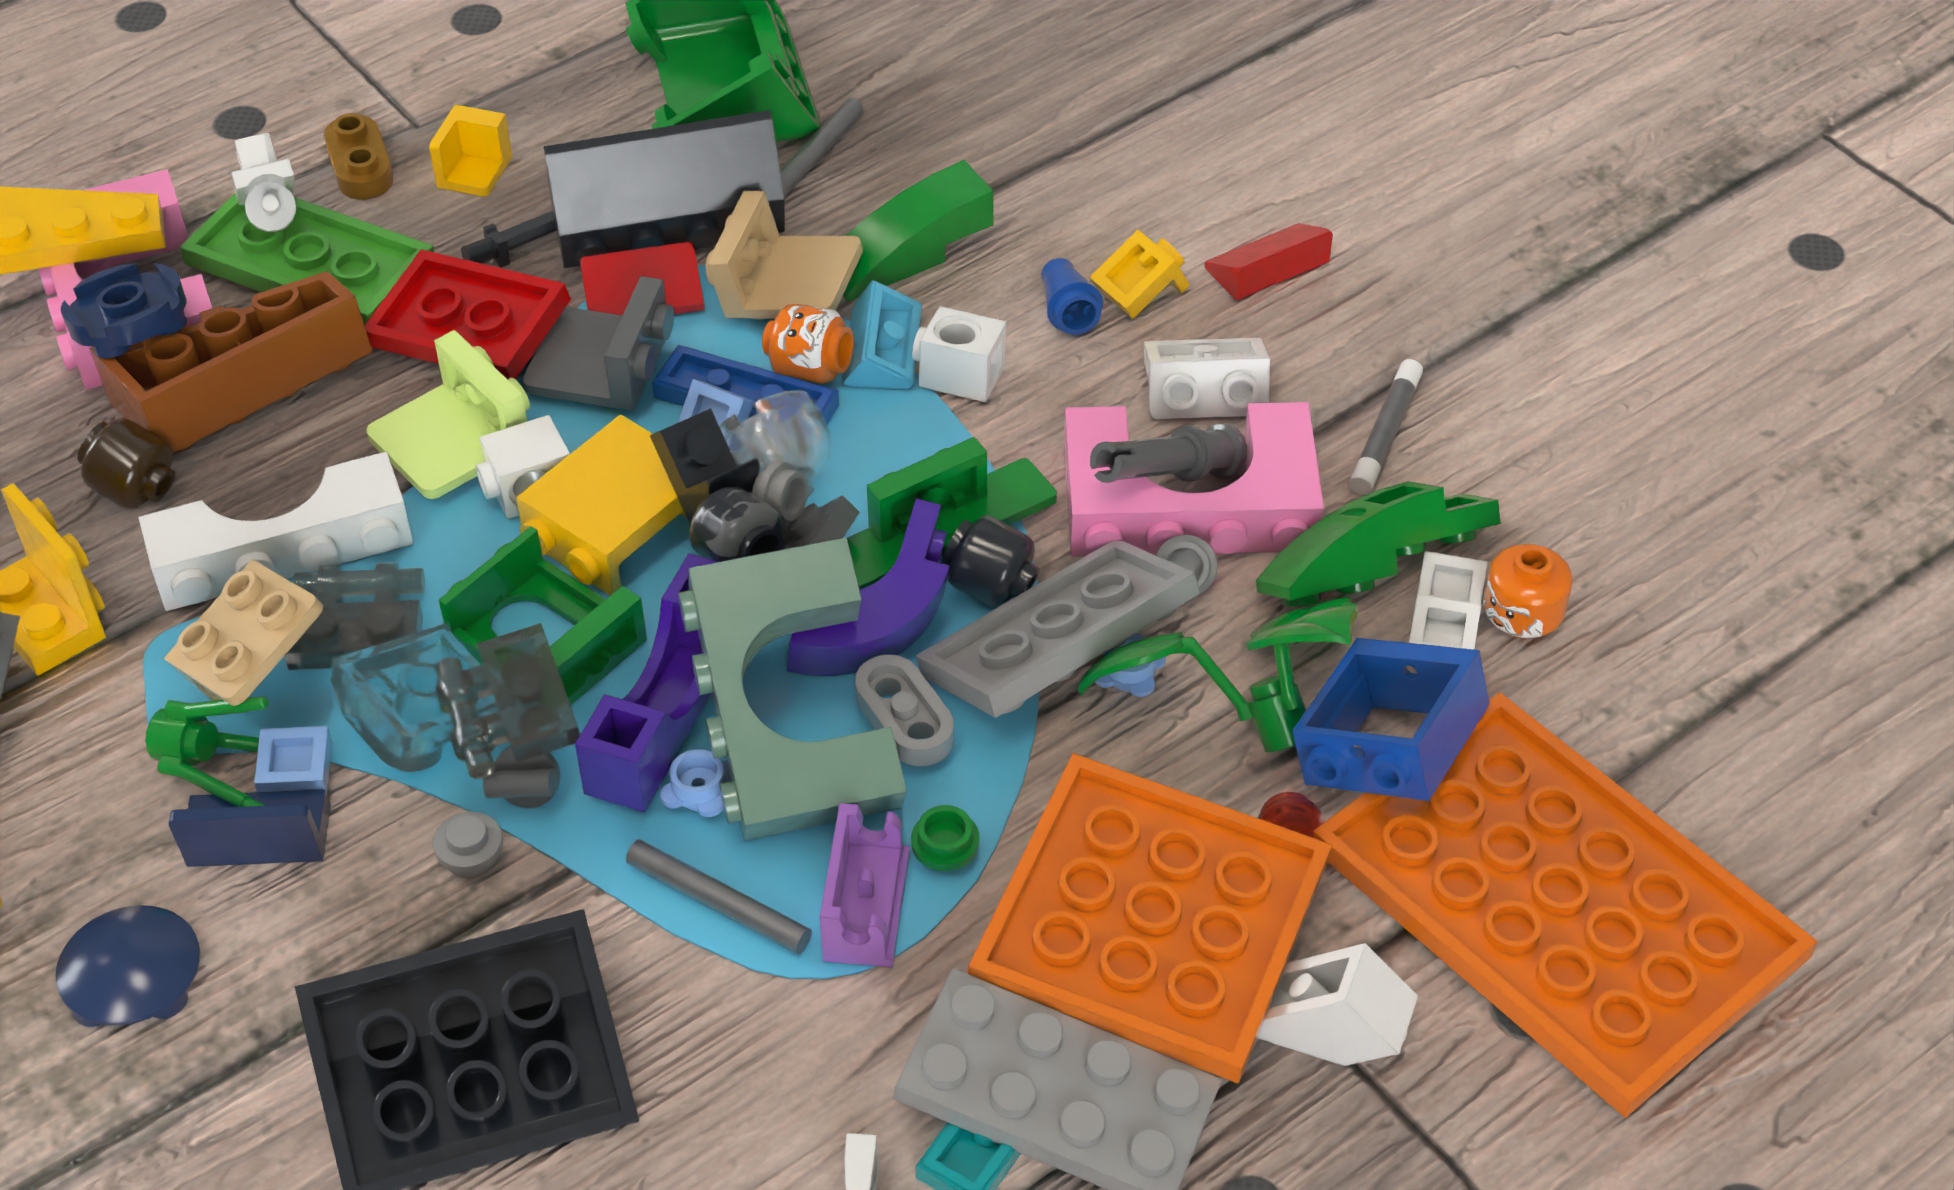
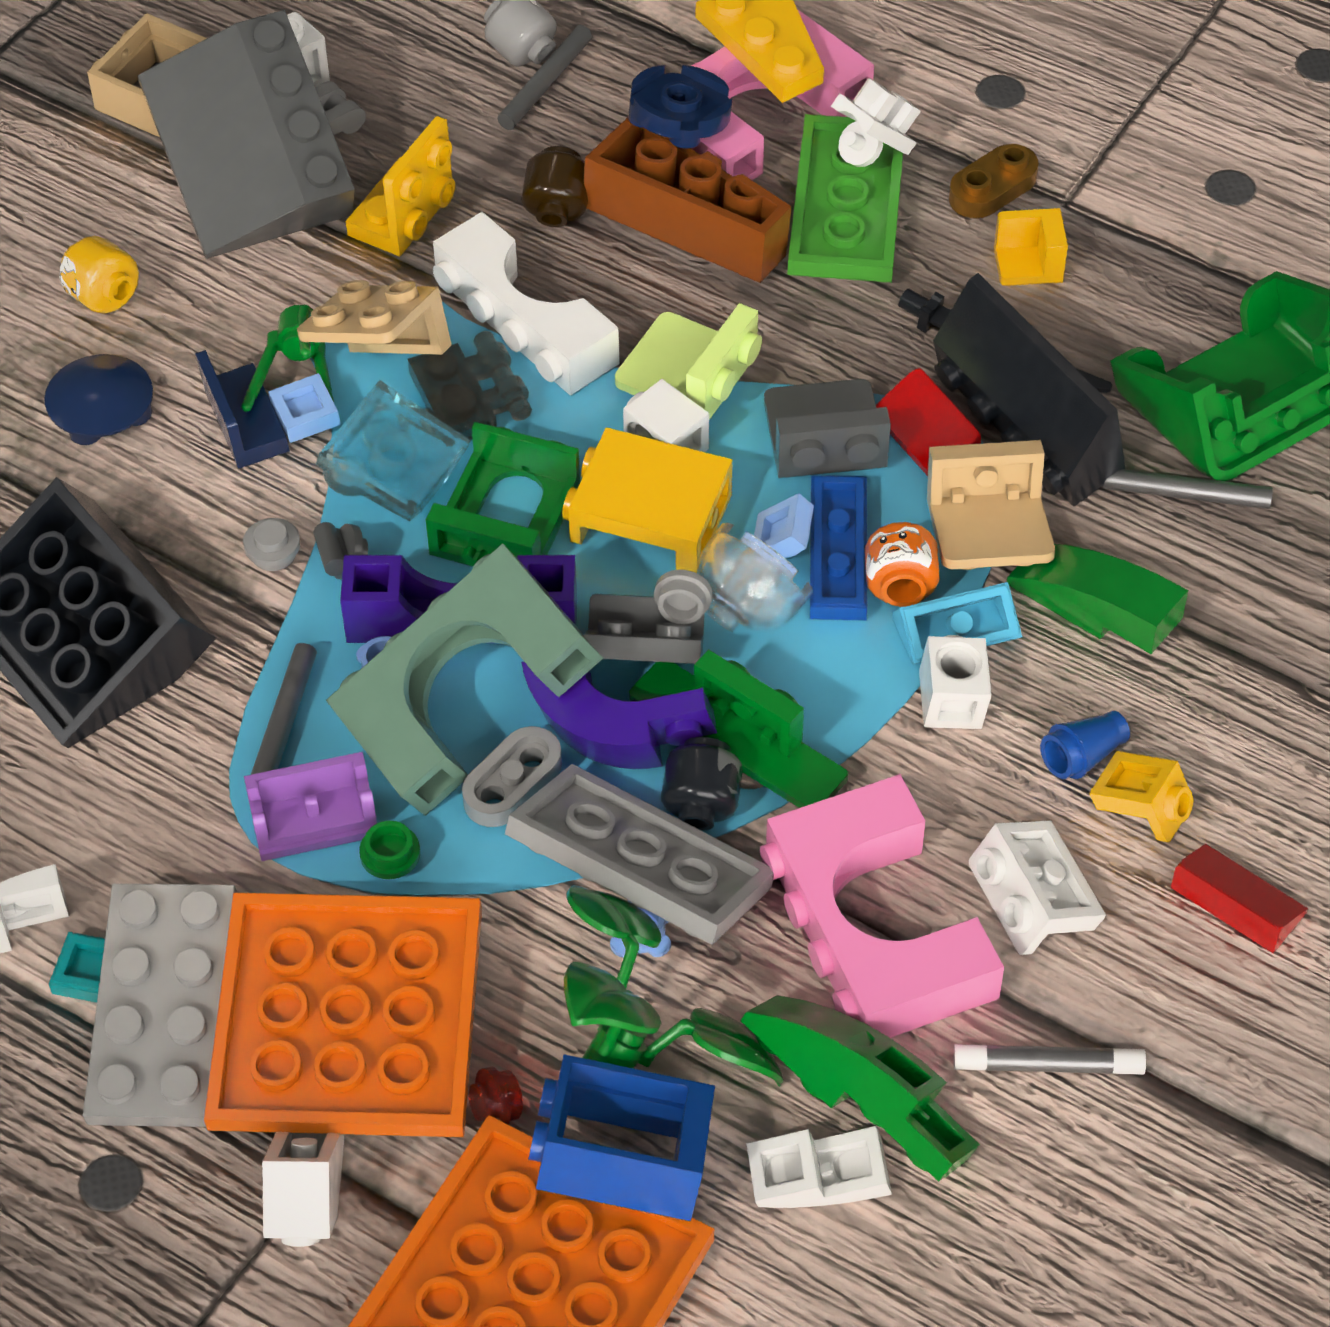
camera: 70 degrees right, 5 degrees up
(483, 303) = (819, 322): red plate -> none
(528, 694) = (384, 509): clear smoke plate -> none
(700, 460) = (679, 533): black slope -> none
(735, 526) = (613, 580): black head -> none
(1186, 454) = (893, 889): dark grey pin -> none
(1193, 555) = (771, 935): light grey plate -> none
(1527, 590) = (852, 1222): orange head -> none

